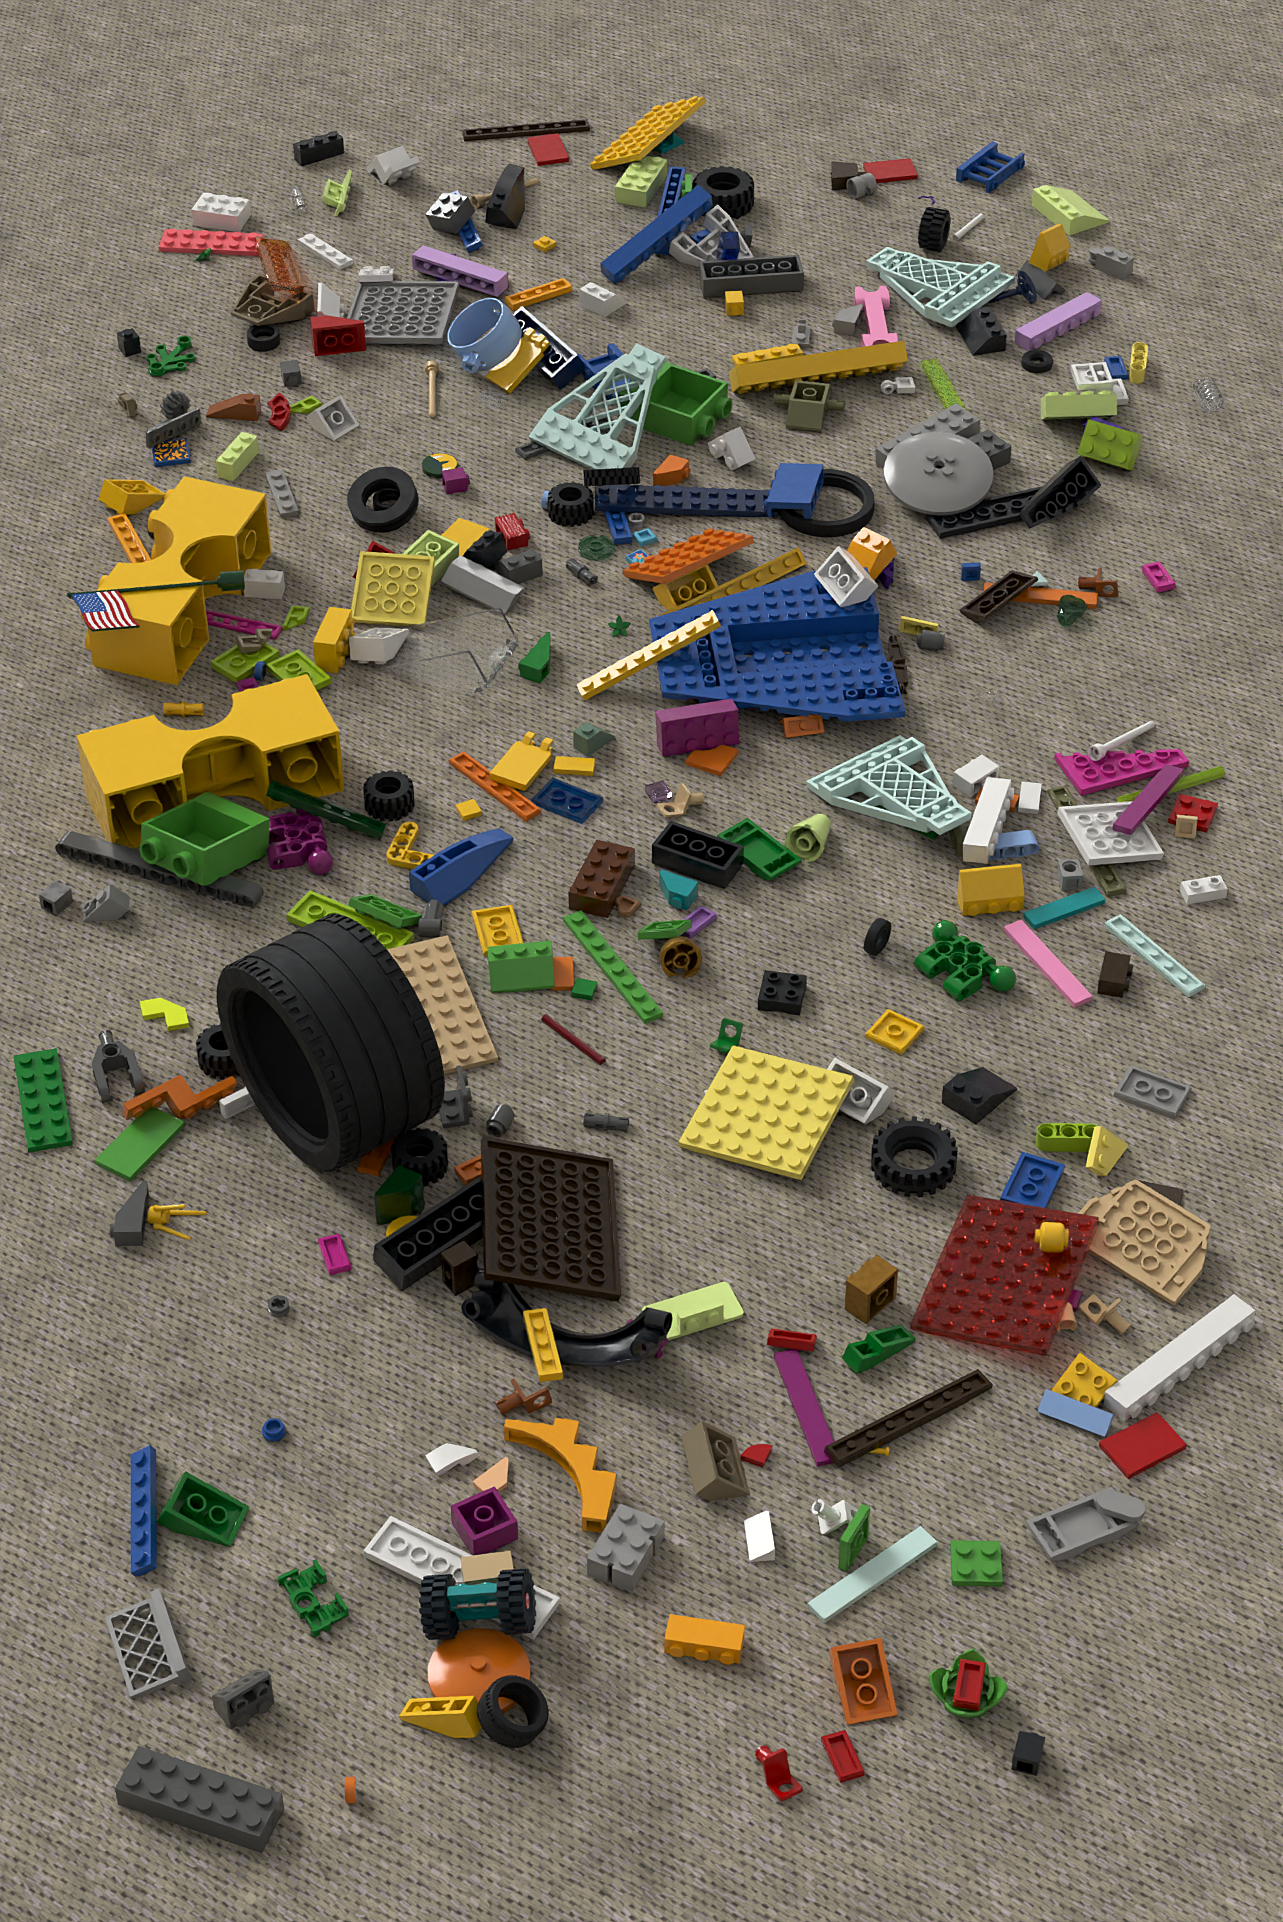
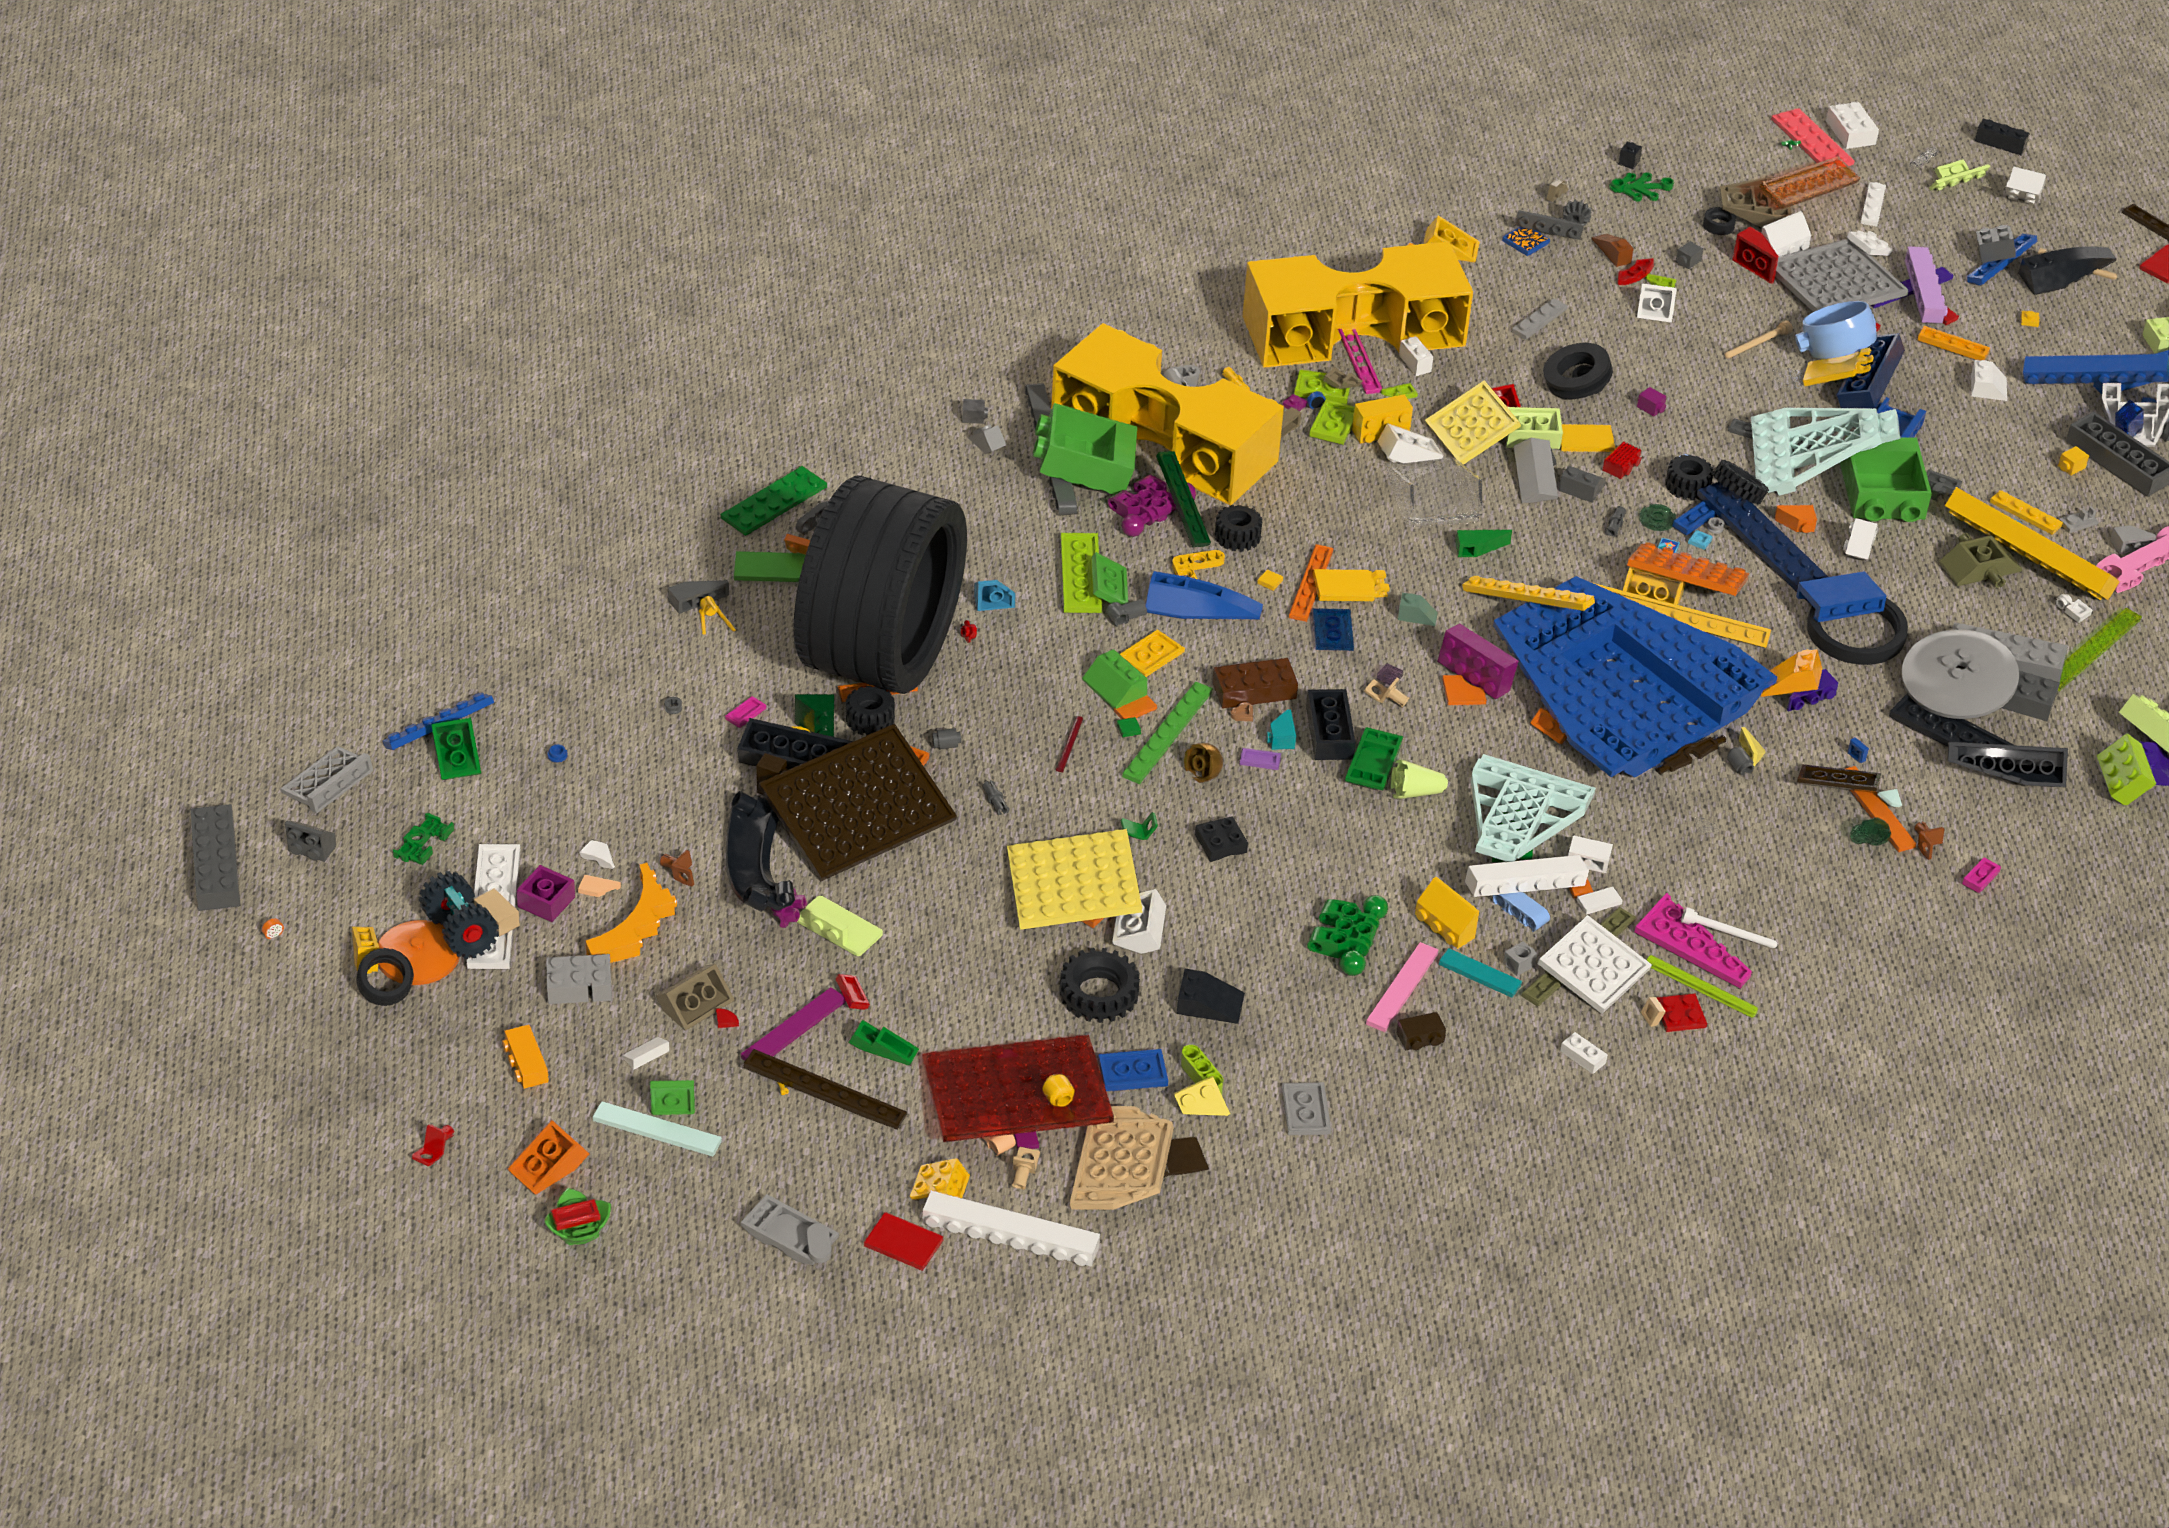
camera: 55 degrees right, 0 degrees up
(109, 610) = (1257, 270): flag -> none
(237, 456) = (1553, 273): yellowish green brick -> none
(436, 463) = (1667, 385): tile -> none
(448, 1003) = (1031, 652): tan plate -> none
(455, 1107) = (944, 705): dark grey bracket -> none
(487, 549) = (1575, 453): black slope -> none
(542, 1345) = (732, 852): yellow plate -> none
(574, 765) = (1377, 616): yellow tile -> none
(619, 627) = (1569, 570): green plant -> none
(664, 929) = (1225, 739): bright green tile -> none
(833, 1517) = (699, 1083): white bracket -> none
(842, 1756) = (476, 1177): red tile -> none
(845, 578) = (1737, 665): white slope -> none
(871, 1288) = (930, 1011): pearl gold brick -> none
(877, 936) = (1330, 857): black tyre -> none
(894, 1031) = (1238, 924): yellow tile -> none
(976, 1563) = (710, 1184): bright green plate -> none
(1028, 1753) = (545, 1278): black brick -> none
(1076, 1413) = (903, 1186): light blue tile -> none
(1148, 799) = (1658, 971): magenta tile -> none
(1154, 955) = (1473, 1051): light aqua tile -> none

